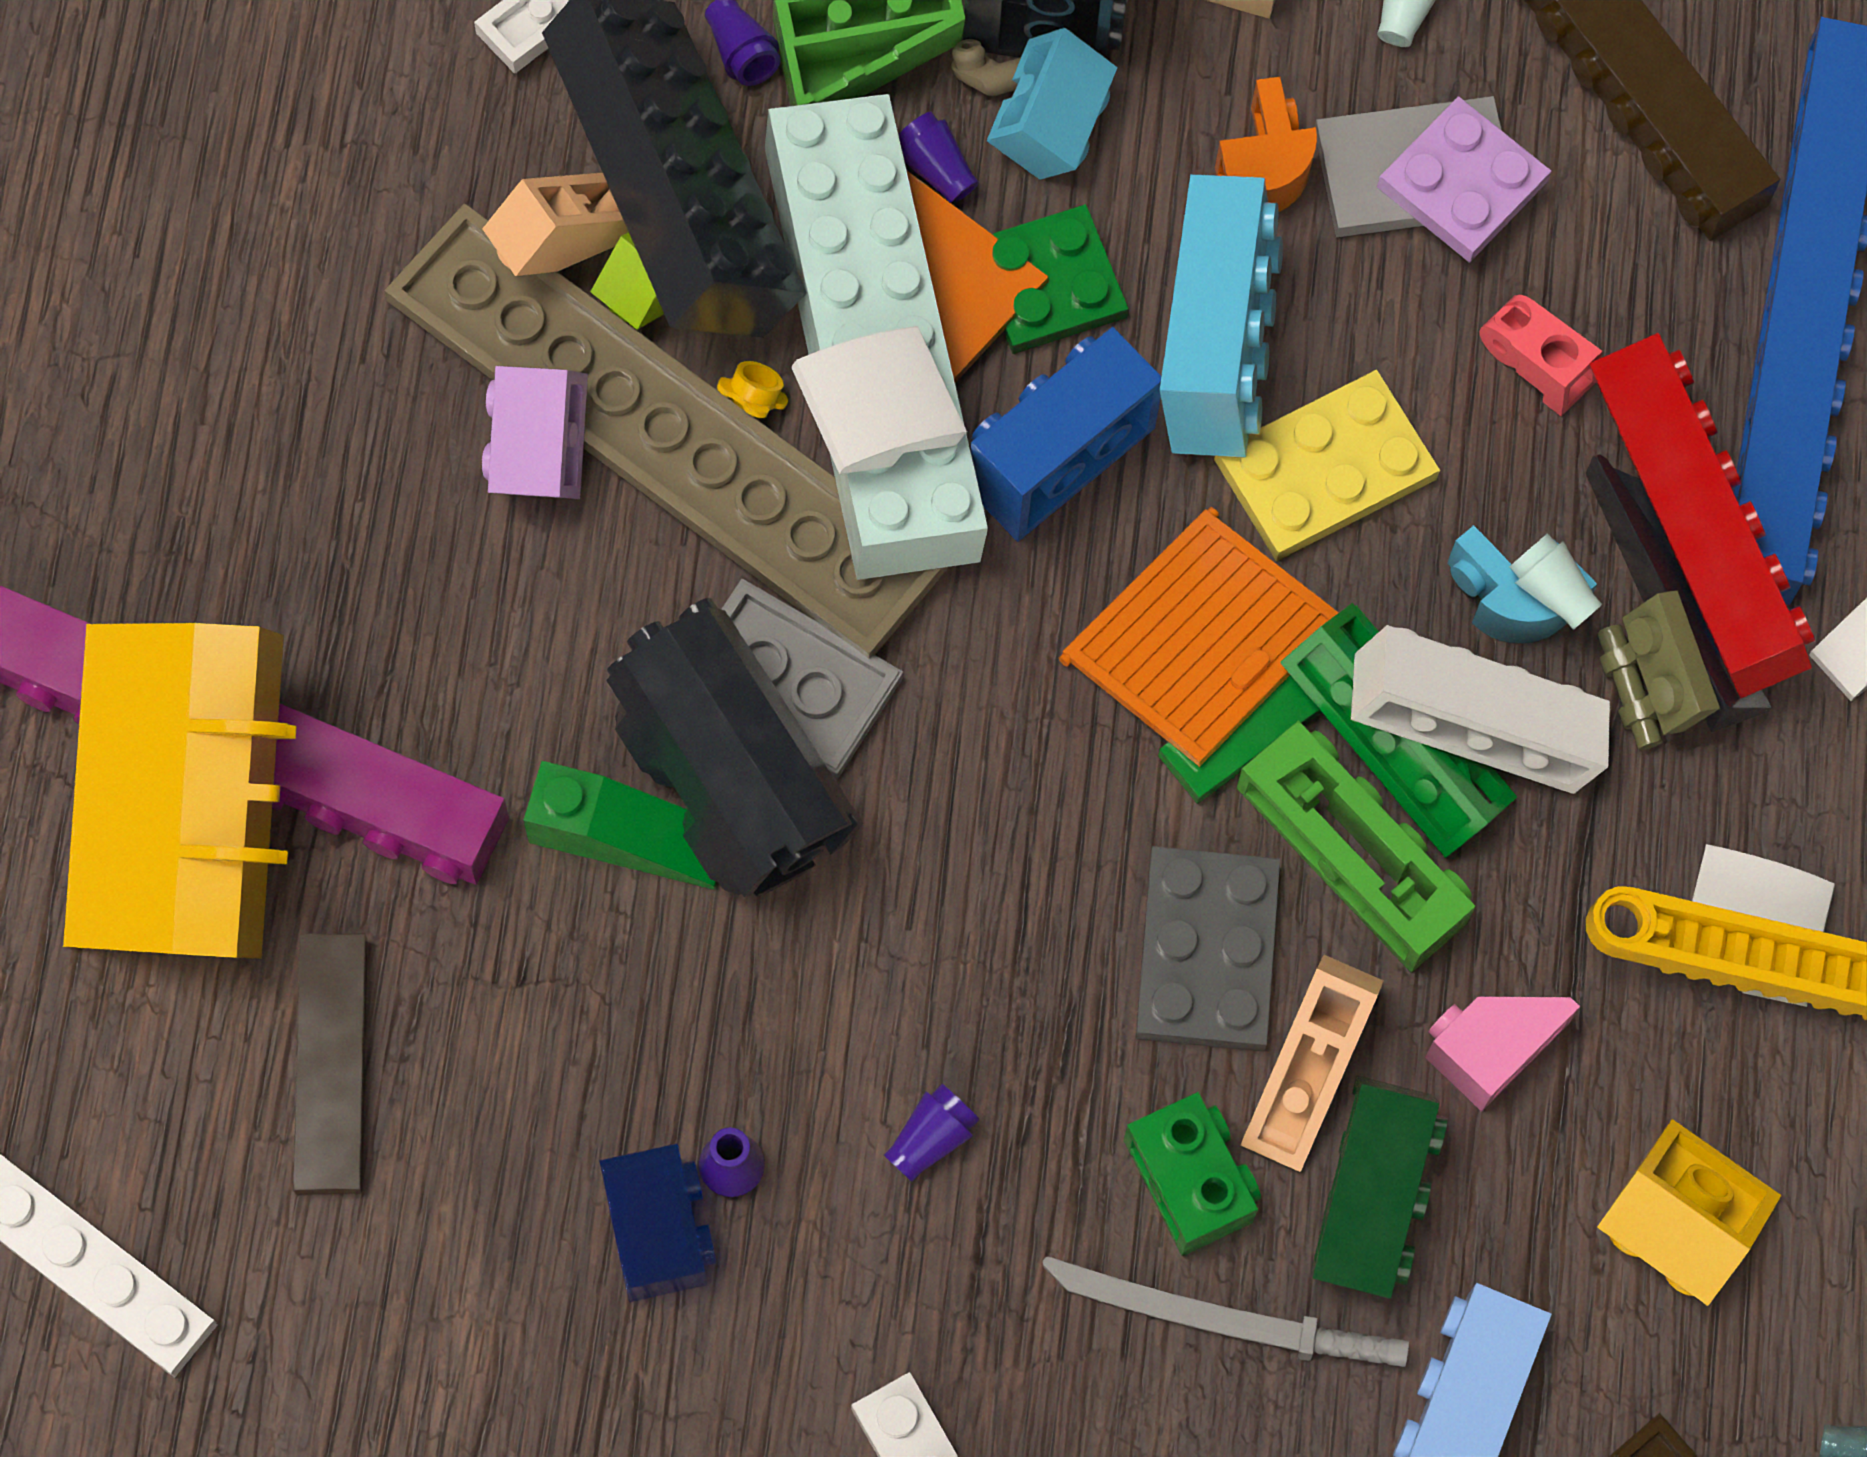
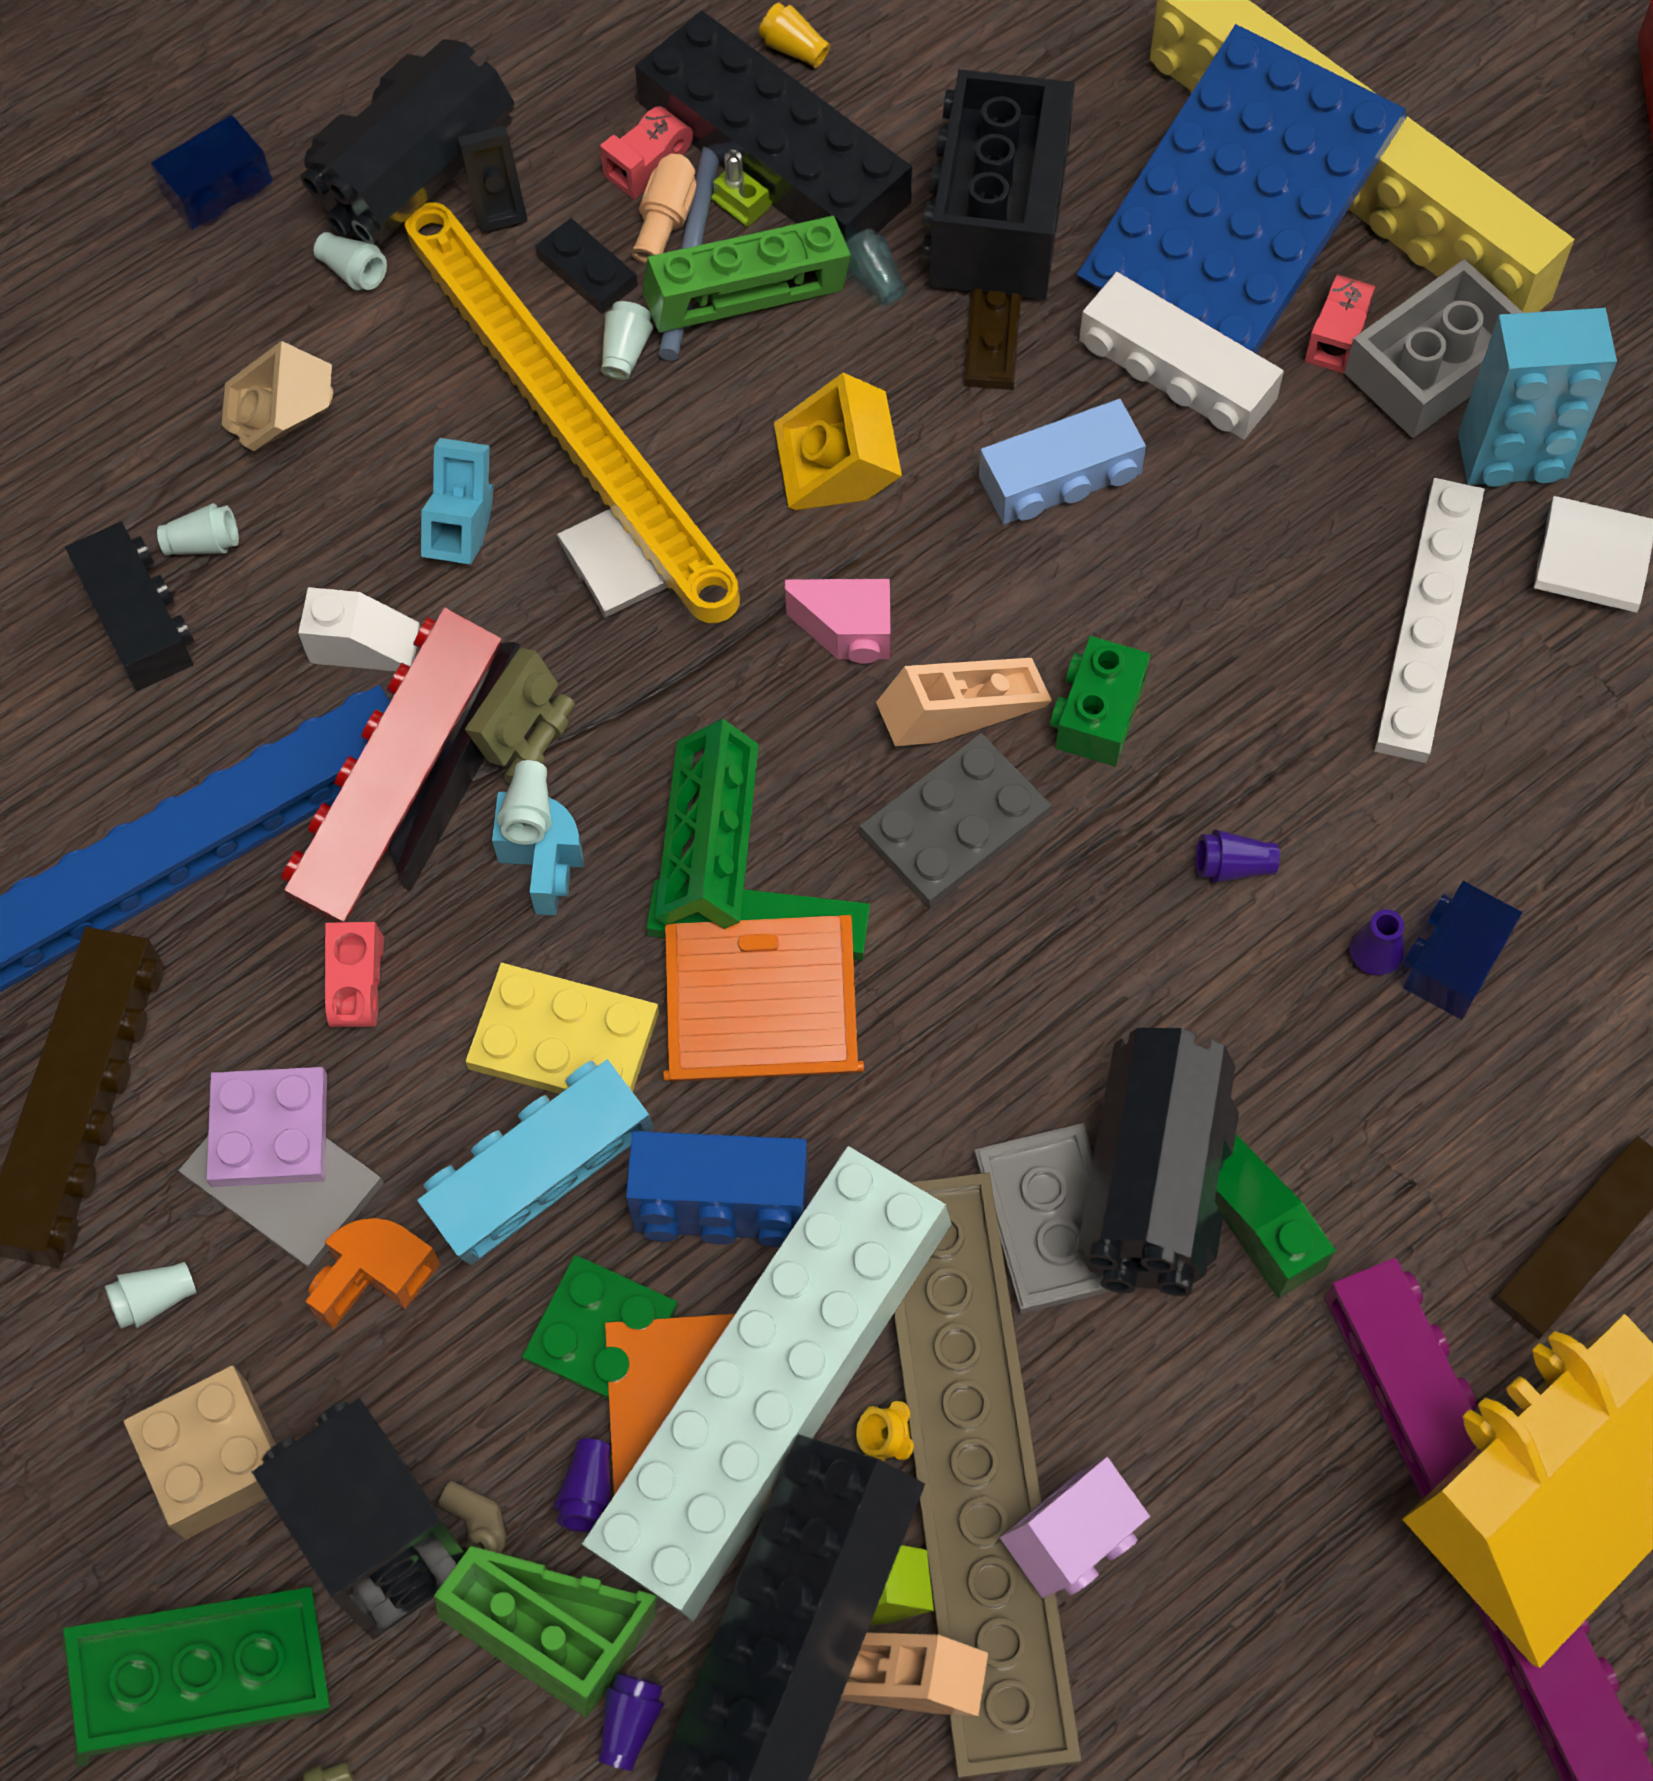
camera: 130 degrees left, 5 degrees down
(878, 399) = (839, 1283): white slope -> none
(1054, 105) = (469, 1437): medium azure brick -> none
(1227, 1321) = (1122, 573): light grey sword -> none
(1285, 788) = (806, 711): bright green brick -> none
(1378, 1187) = (997, 596): dark green wedge -> none
(1480, 709) = (658, 775): white brick -> none

